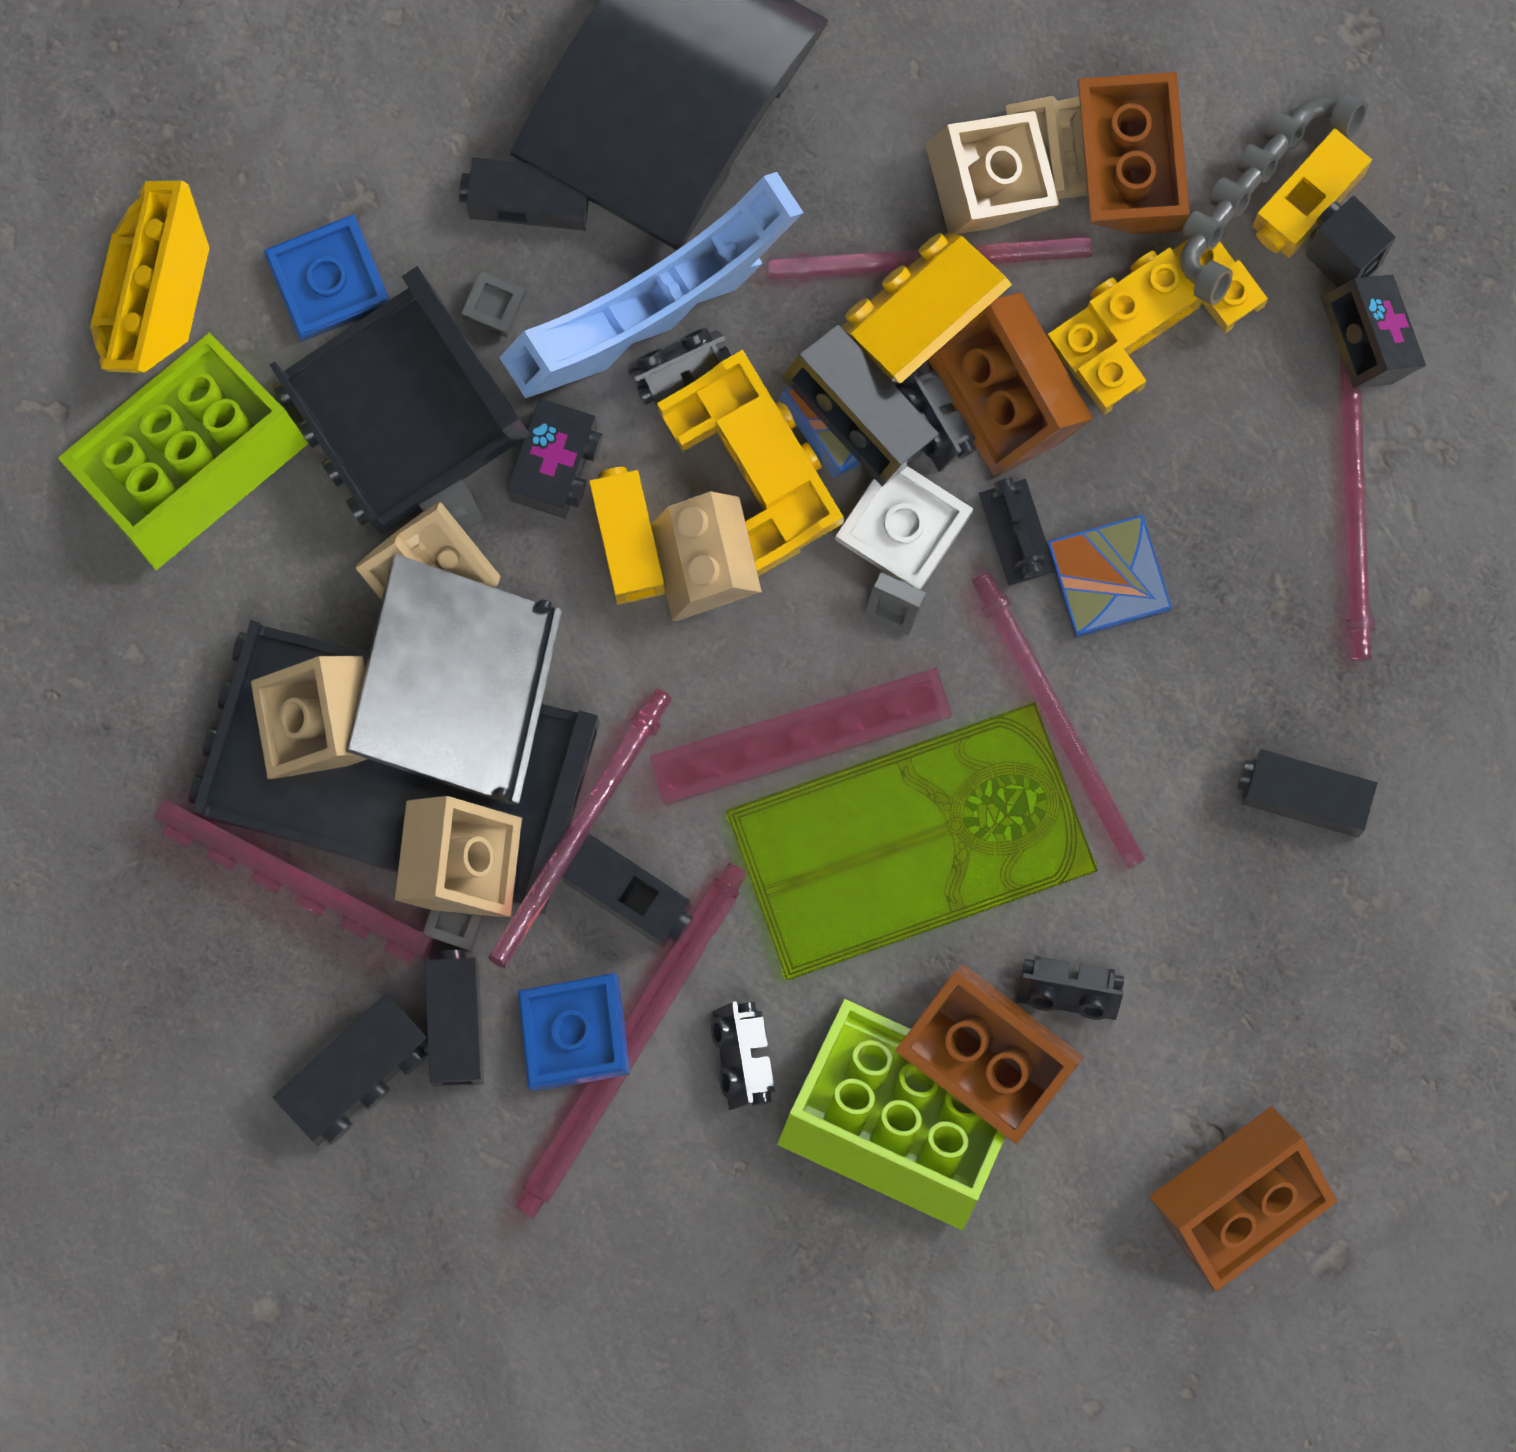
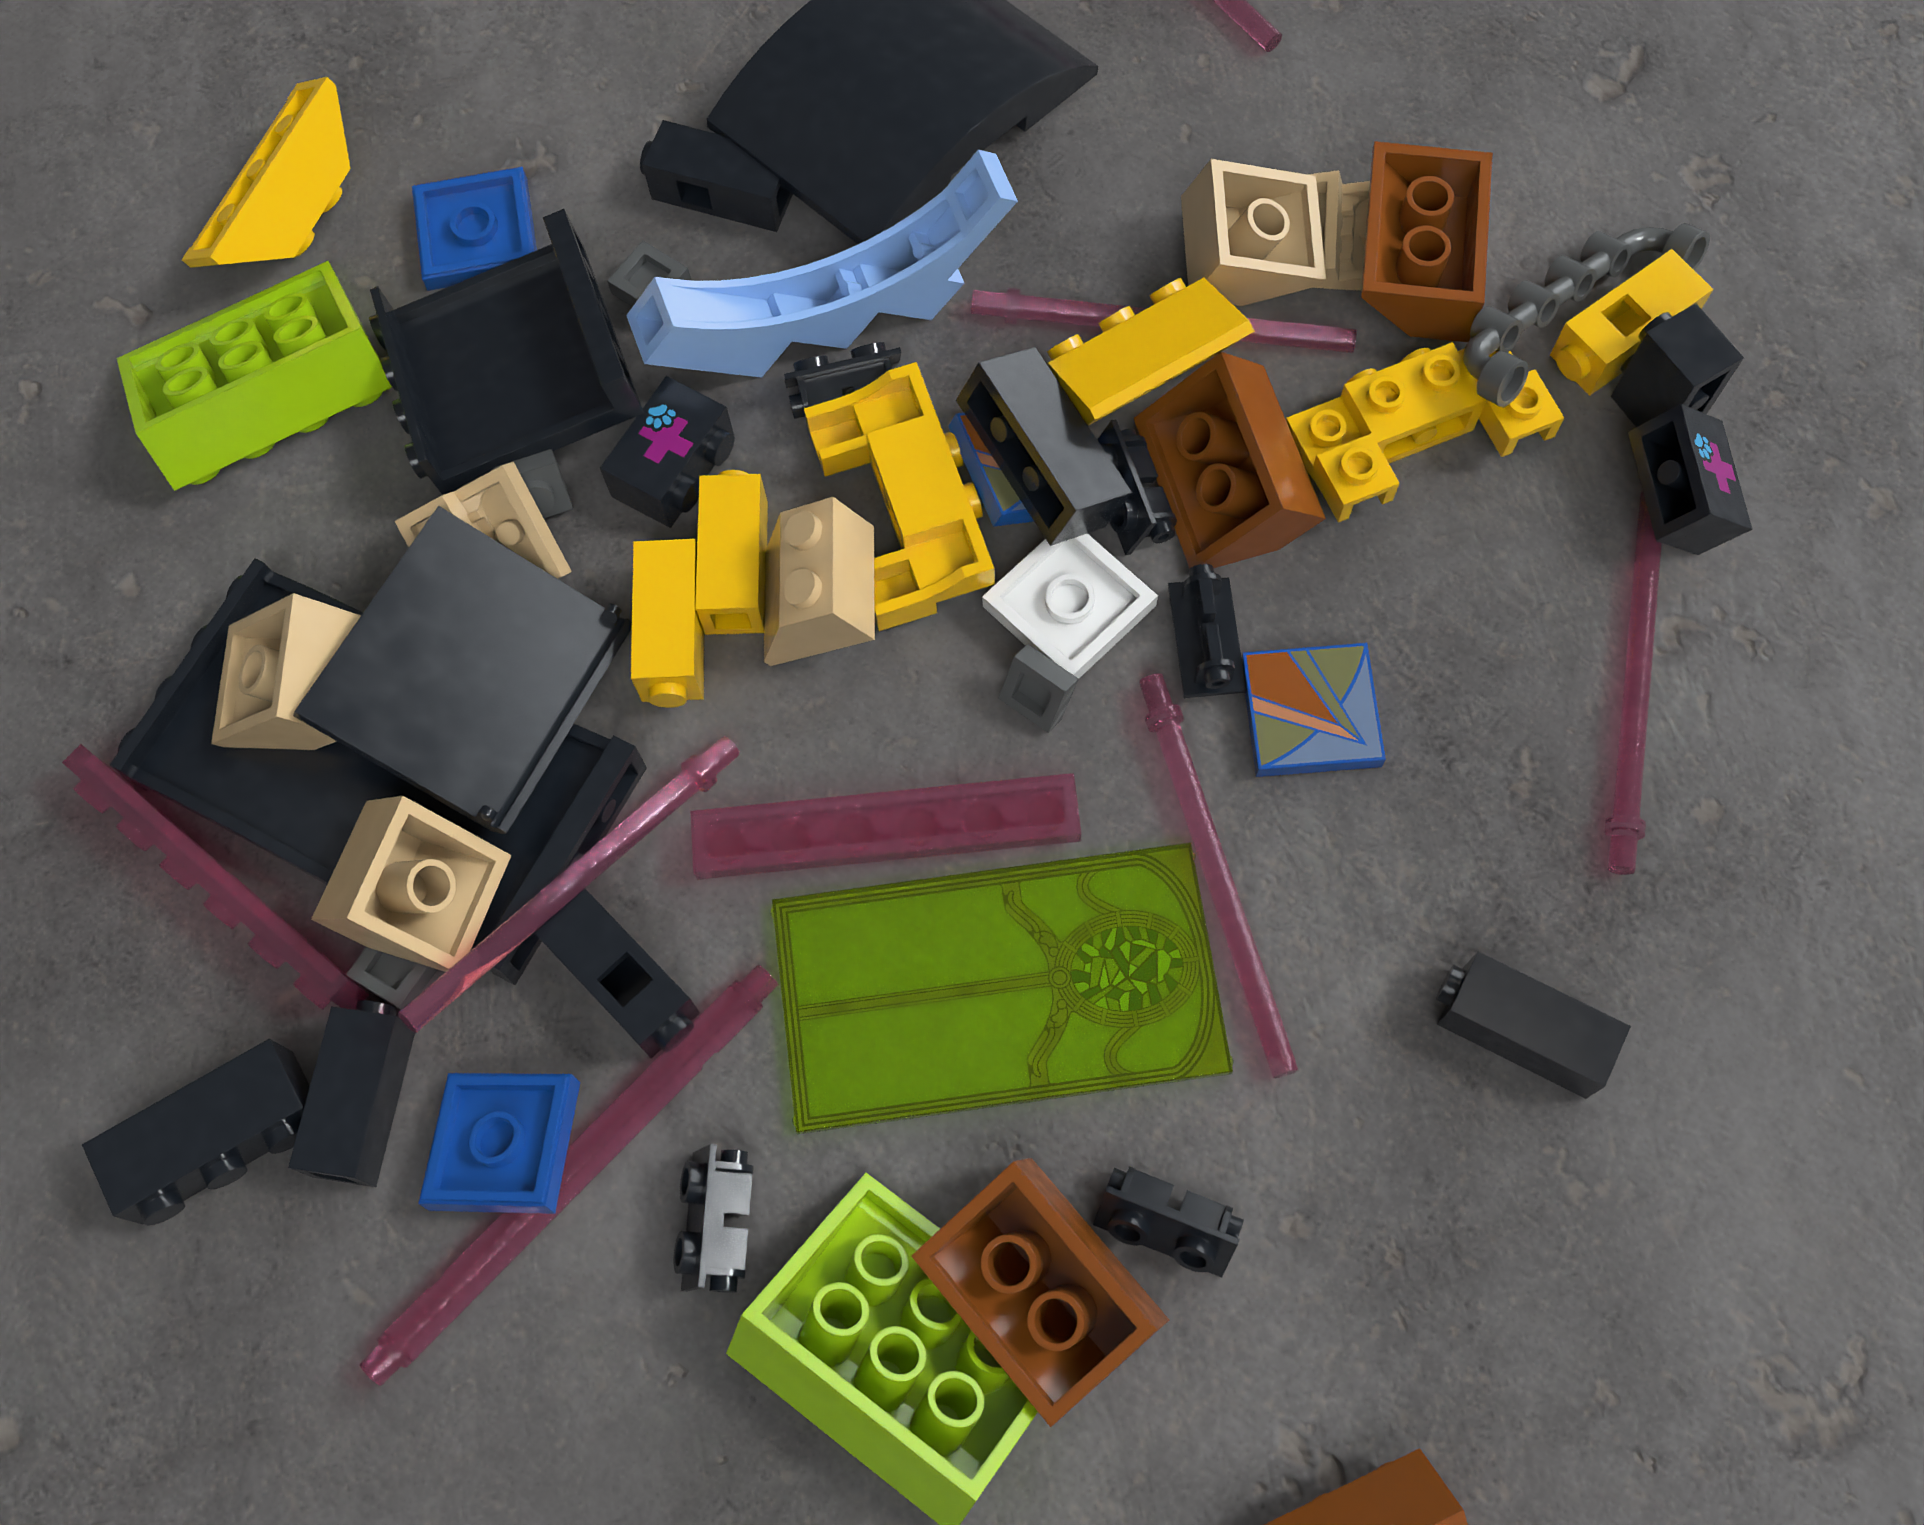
camera: 15 degrees right, 10 degrees down
(591, 605) = (665, 625): none -> yellow brick

